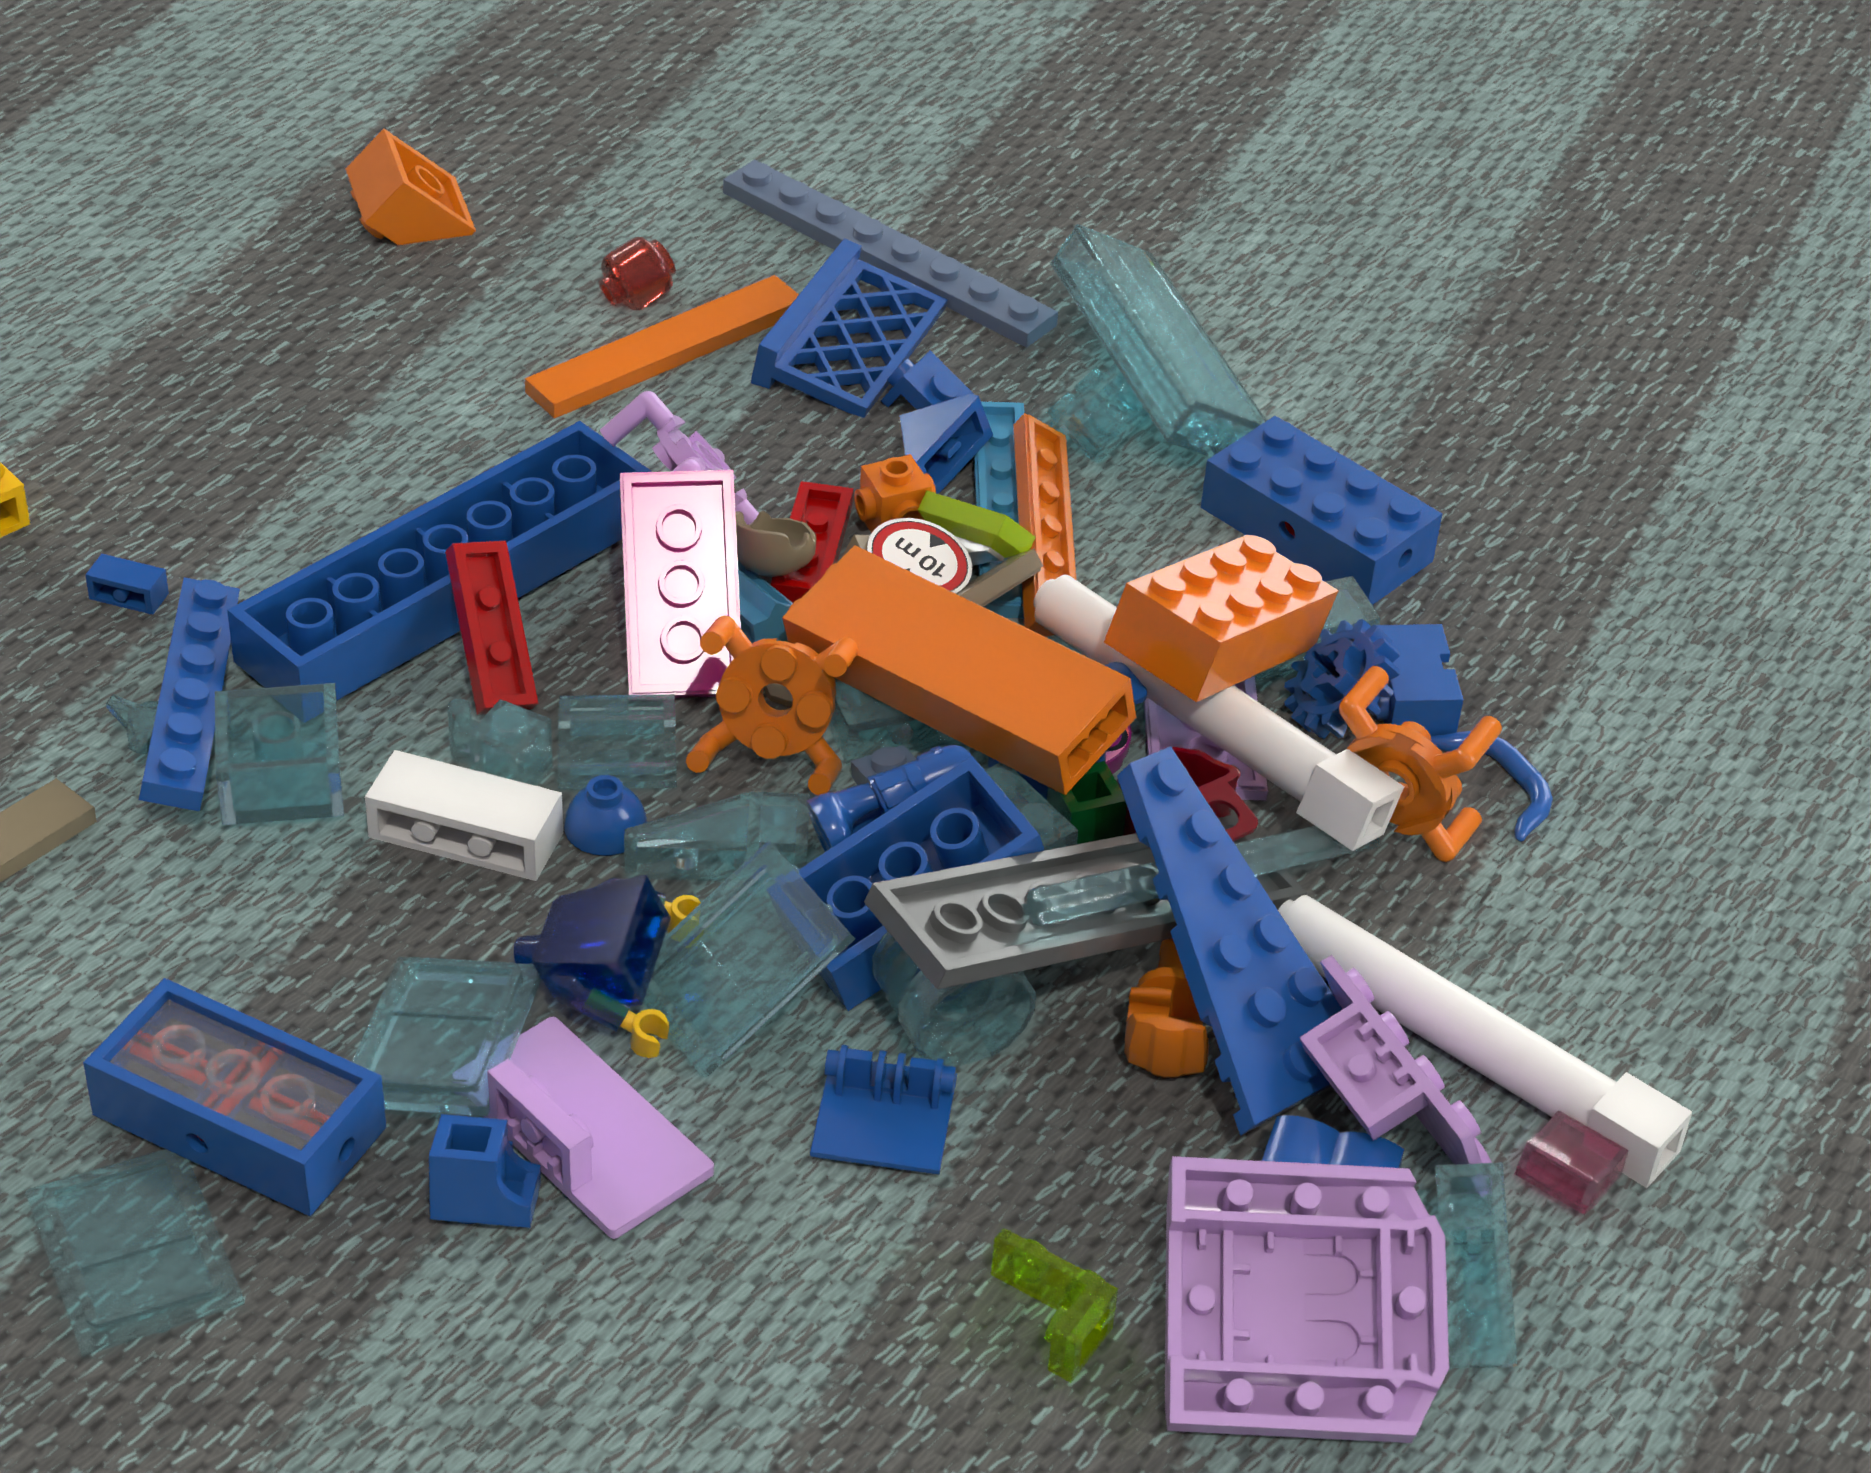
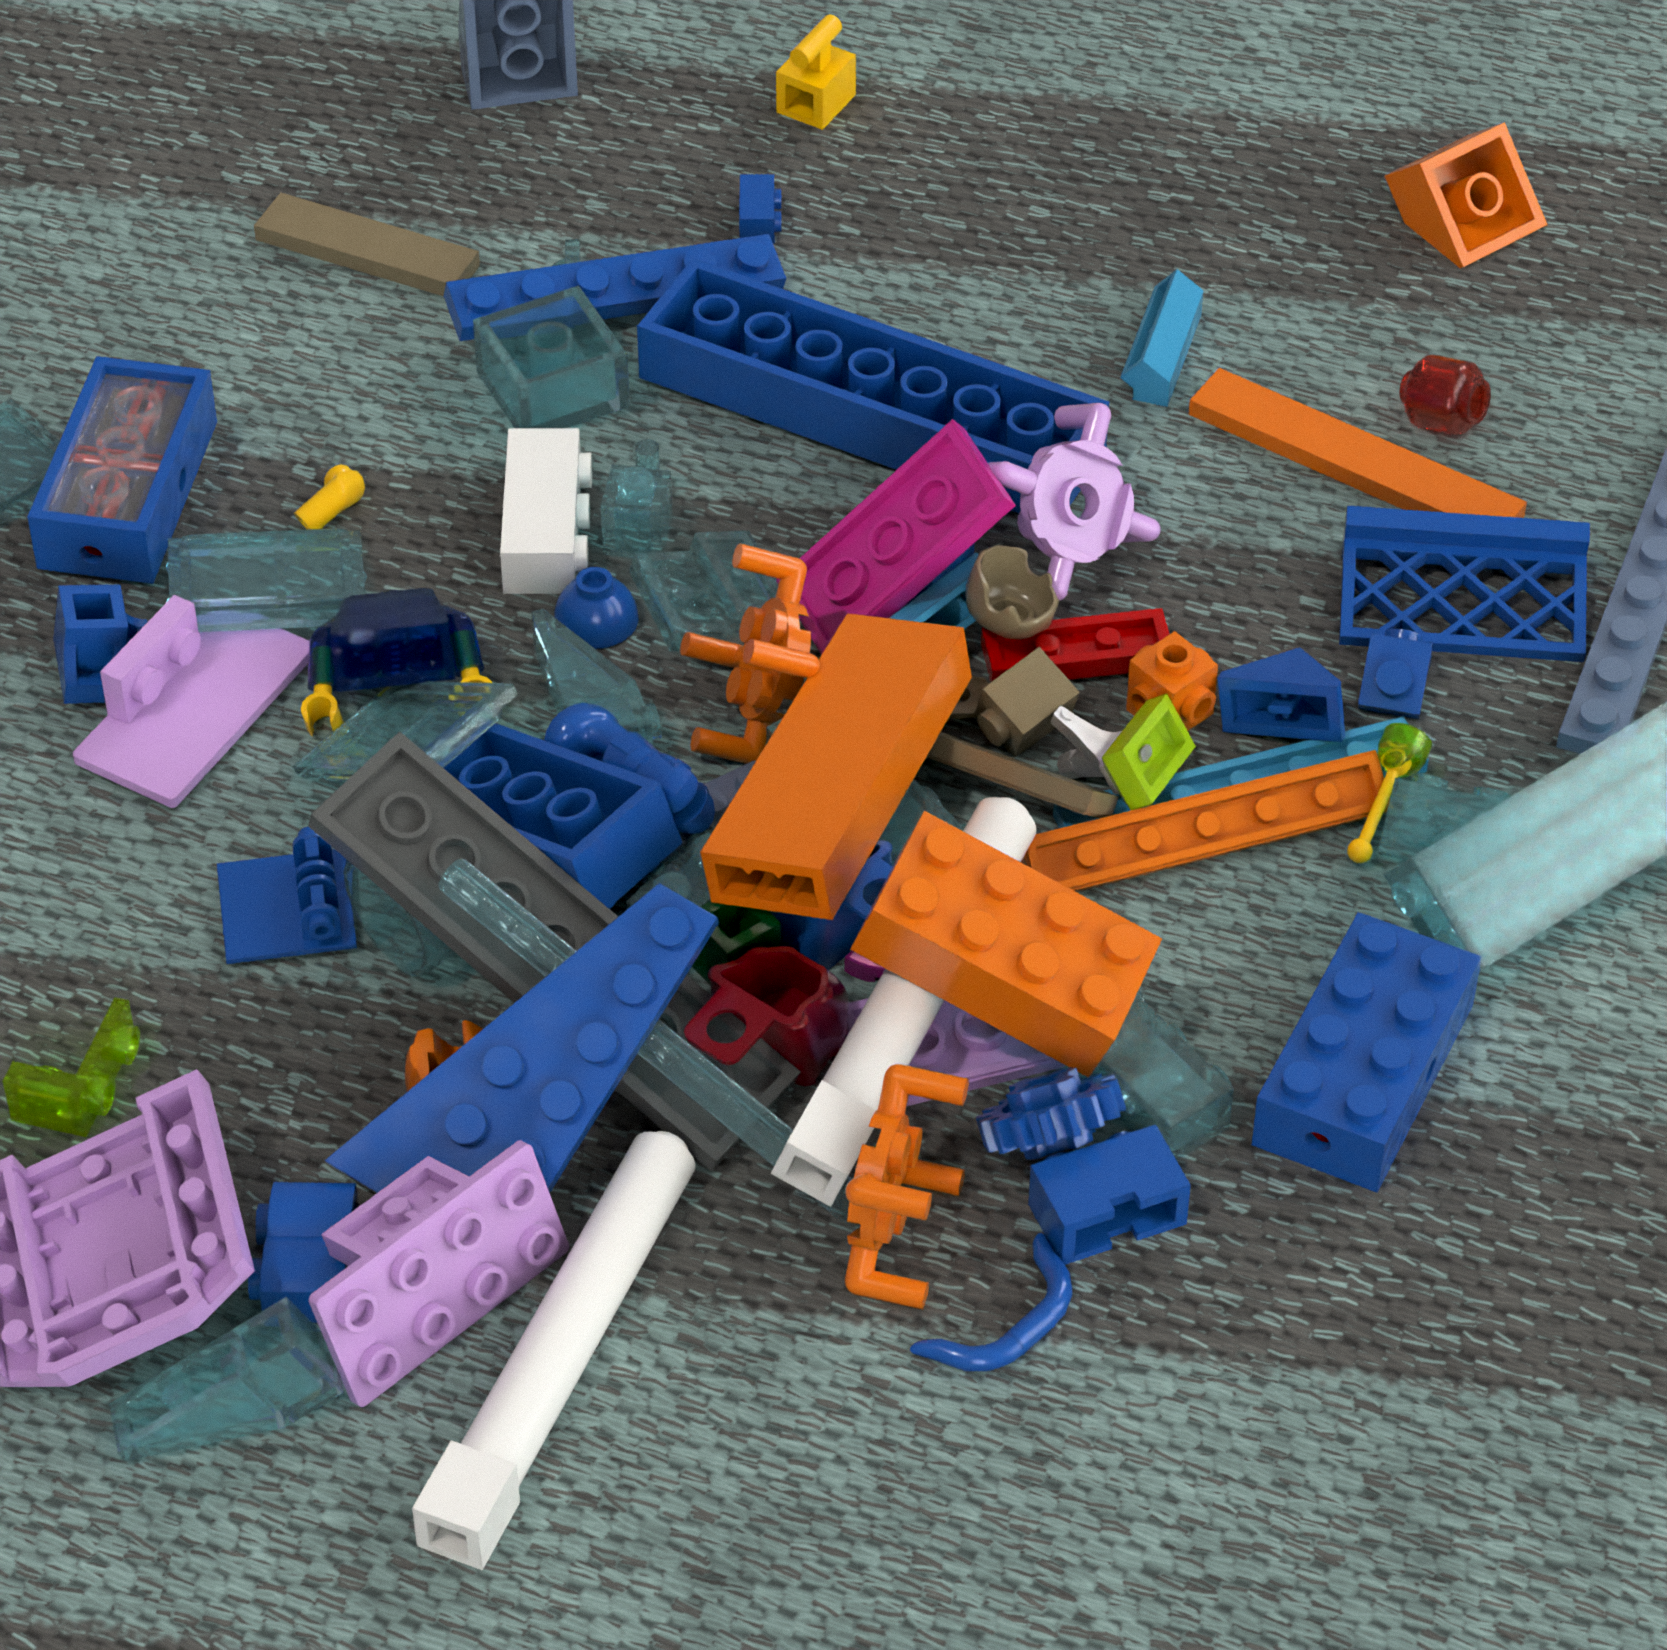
camera: 75 degrees right, 5 degrees up
(350, 956) = (341, 491): none -> yellow arm
(475, 392) = (1163, 339): none -> dark azure piece
(491, 625) = (777, 438): red plate -> none
(923, 551) = (1046, 713): sticker -> none
(1033, 399) = (1402, 752): none -> hinge
(1571, 1162) = (404, 1457): clear pink piece -> none

